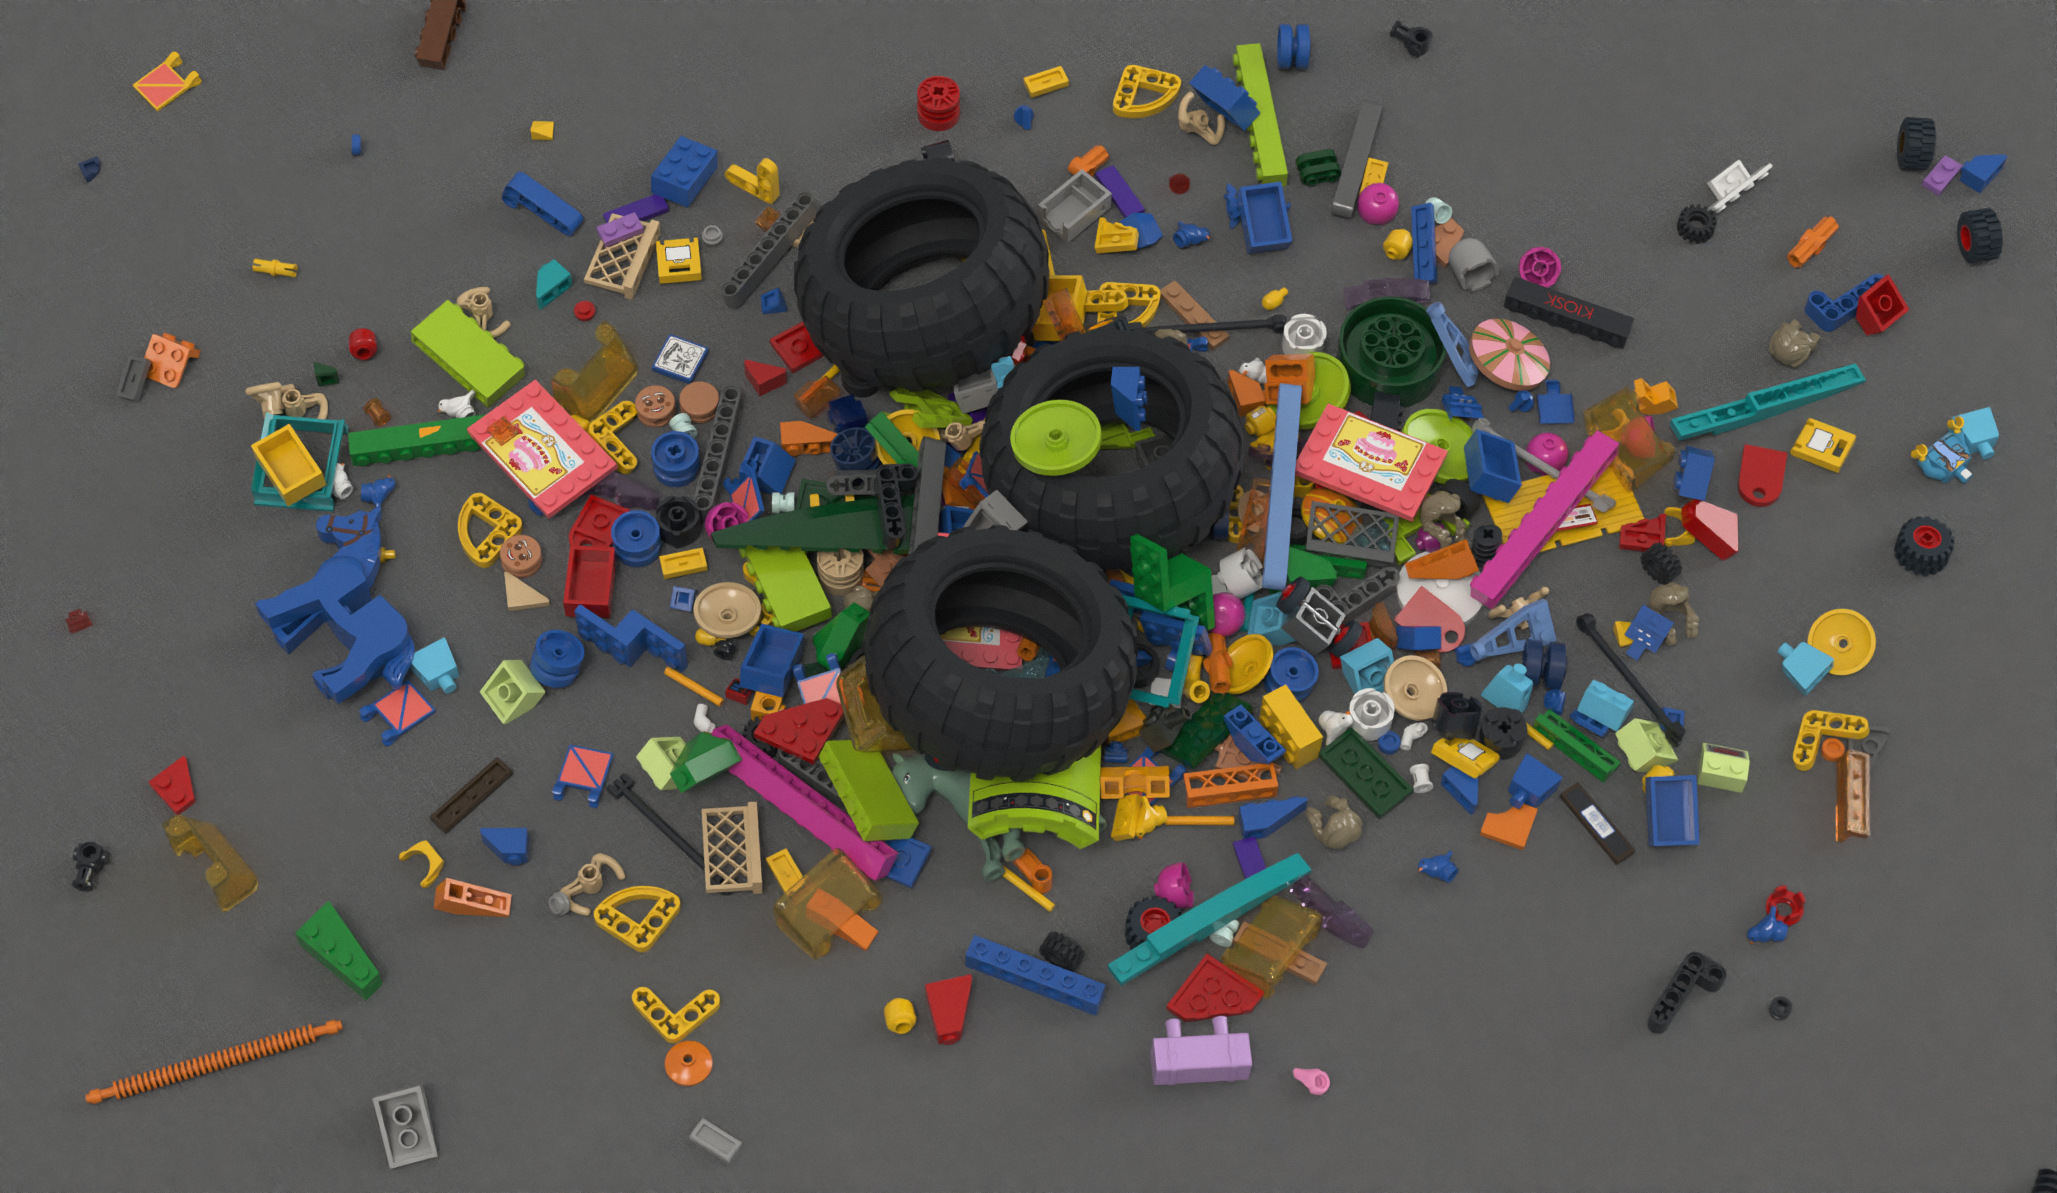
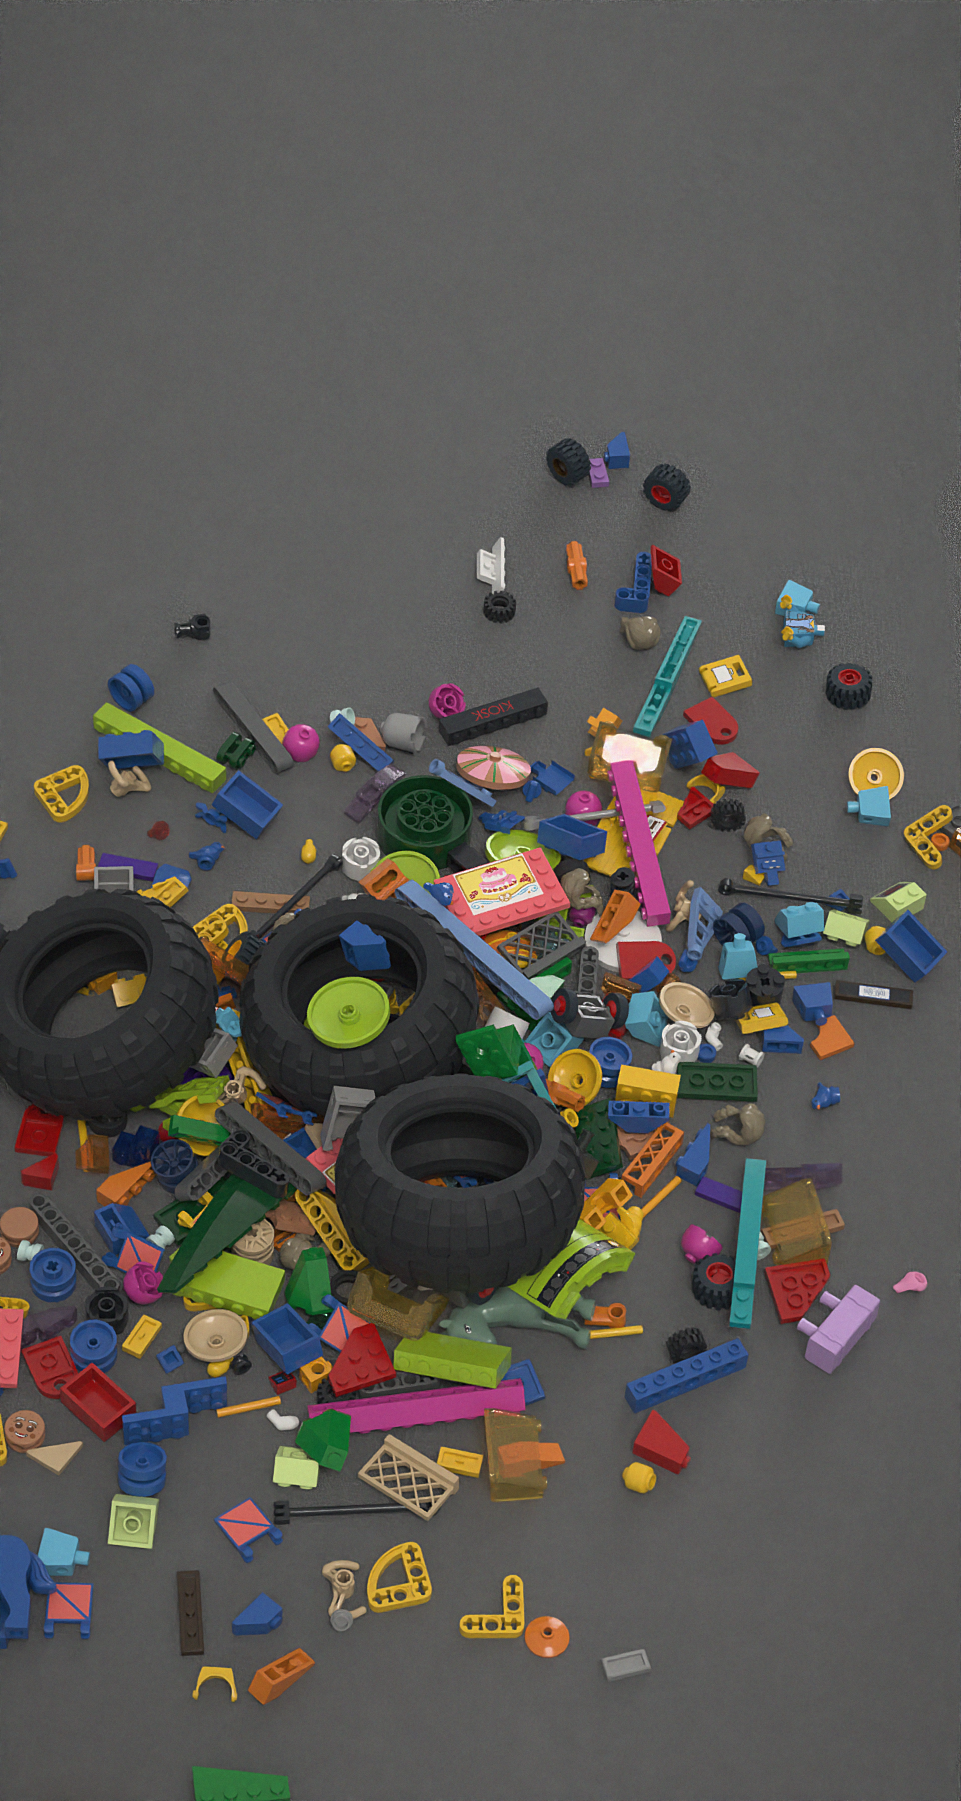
camera: 50 degrees left, 10 degrees down
(1310, 417) = (441, 892): none -> blue animal

